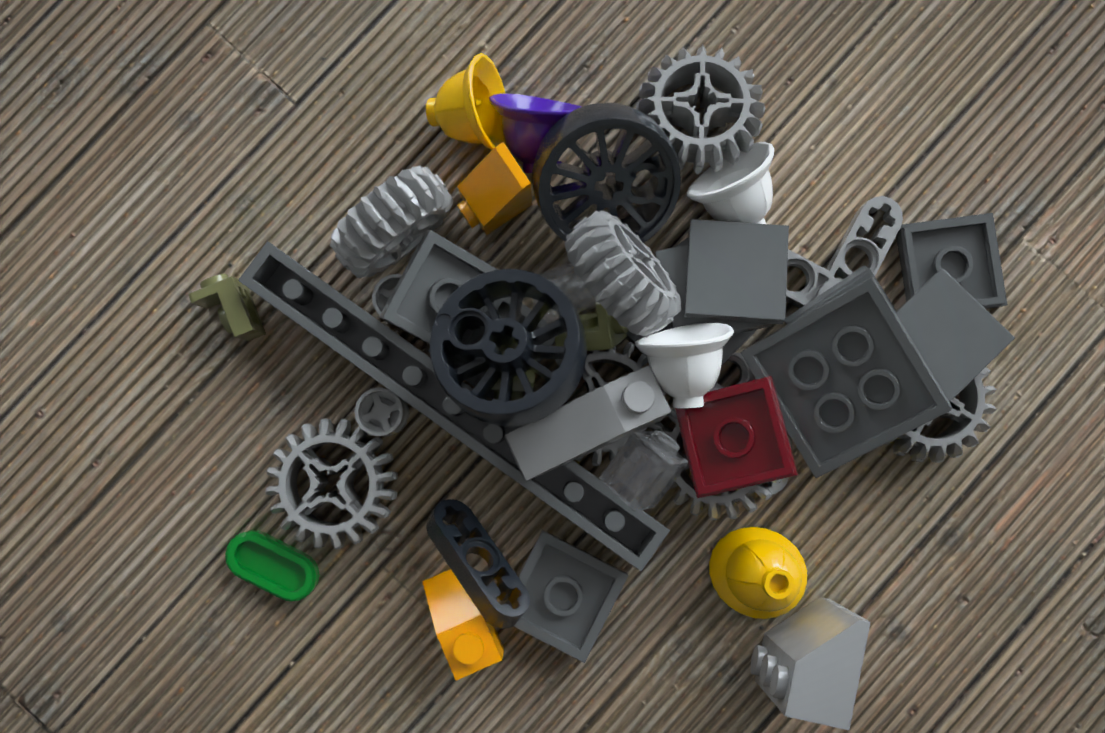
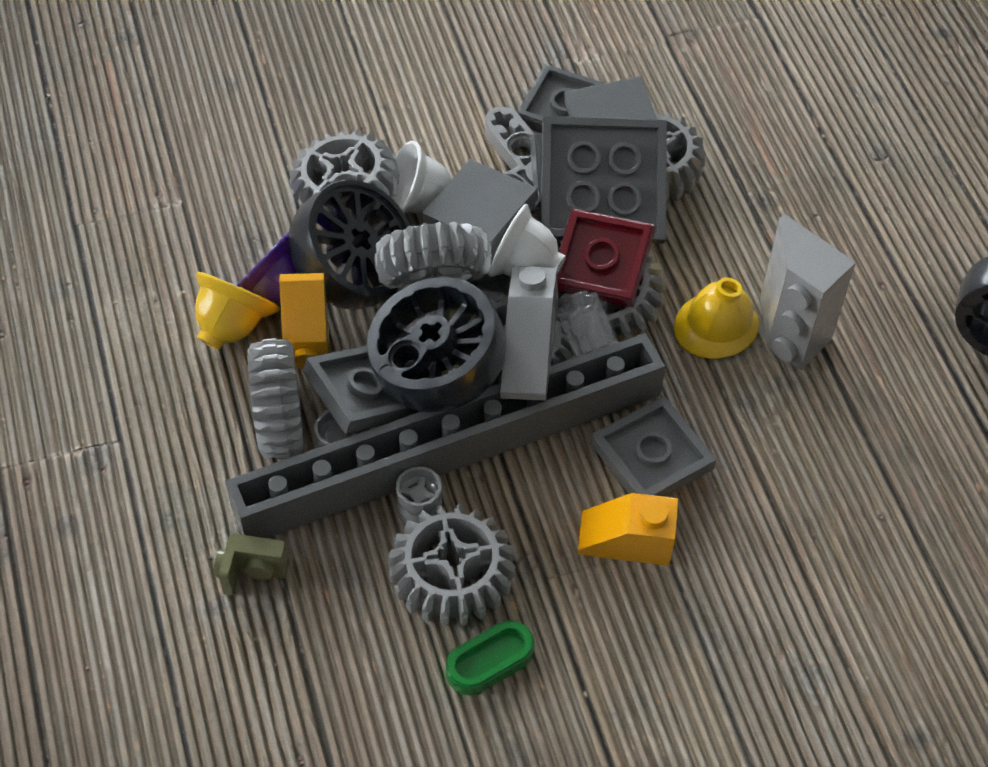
camera: 60 degrees left, 30 degrees down
(477, 541) = (588, 485): black beam -> none

